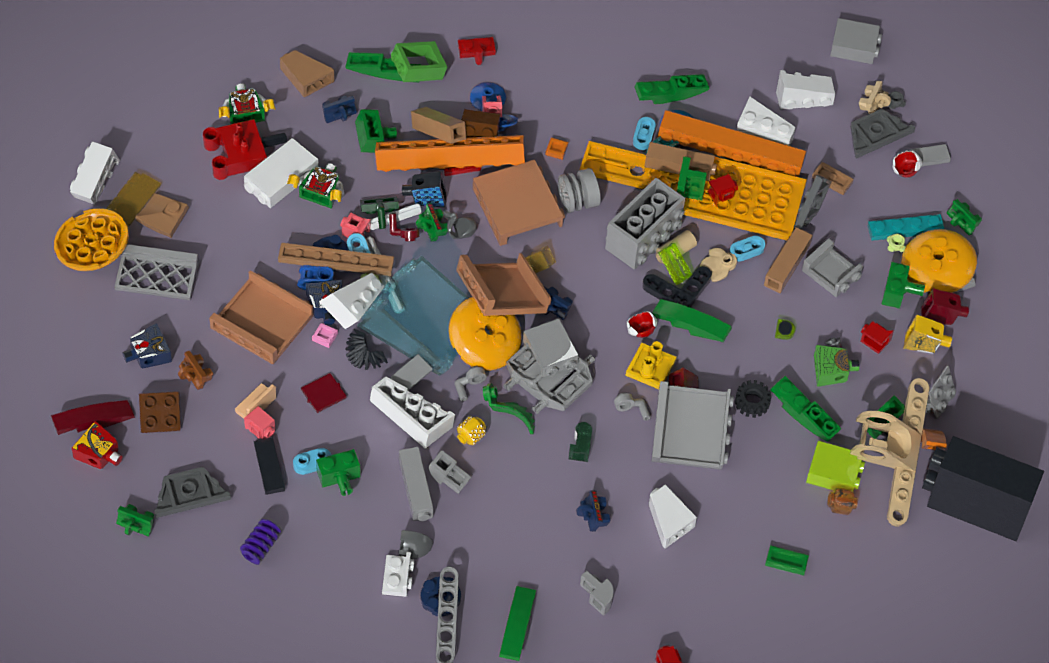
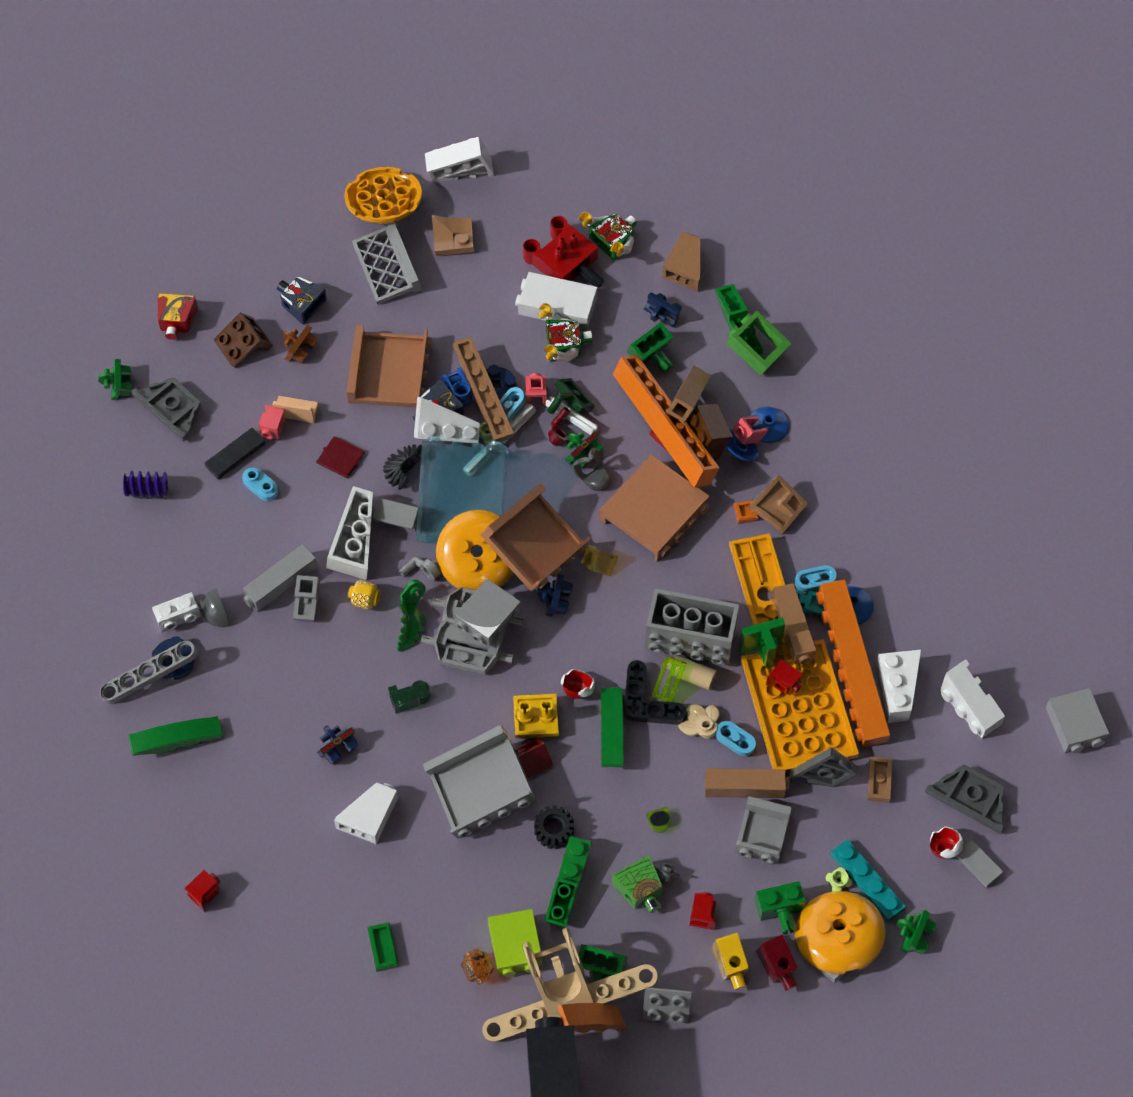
camera: 65 degrees right, 5 degrees up
(83, 417) = (206, 295): dark red slope -> none
(134, 196) = (452, 207): clear yellow windscreen -> none
(325, 335) = (403, 426): bright pink tile -> none
(339, 470) = (256, 507): green brick -> none
(427, 189) = (612, 417): black torso -> none
(476, 48) = (819, 385): red plate -> none
(567, 123) = (778, 504): none -> medium nougat plate
(579, 190) = (697, 551): light grey wheel -> none
(600, 593) = (247, 794): light grey brick -> none
(625, 402) = (479, 713): light grey plate -> none
(674, 90) = (886, 577): green slope -> none
(877, 98) = (1013, 775): tan hips -> none
(896, 100) = (1034, 796): dark grey plate -> none

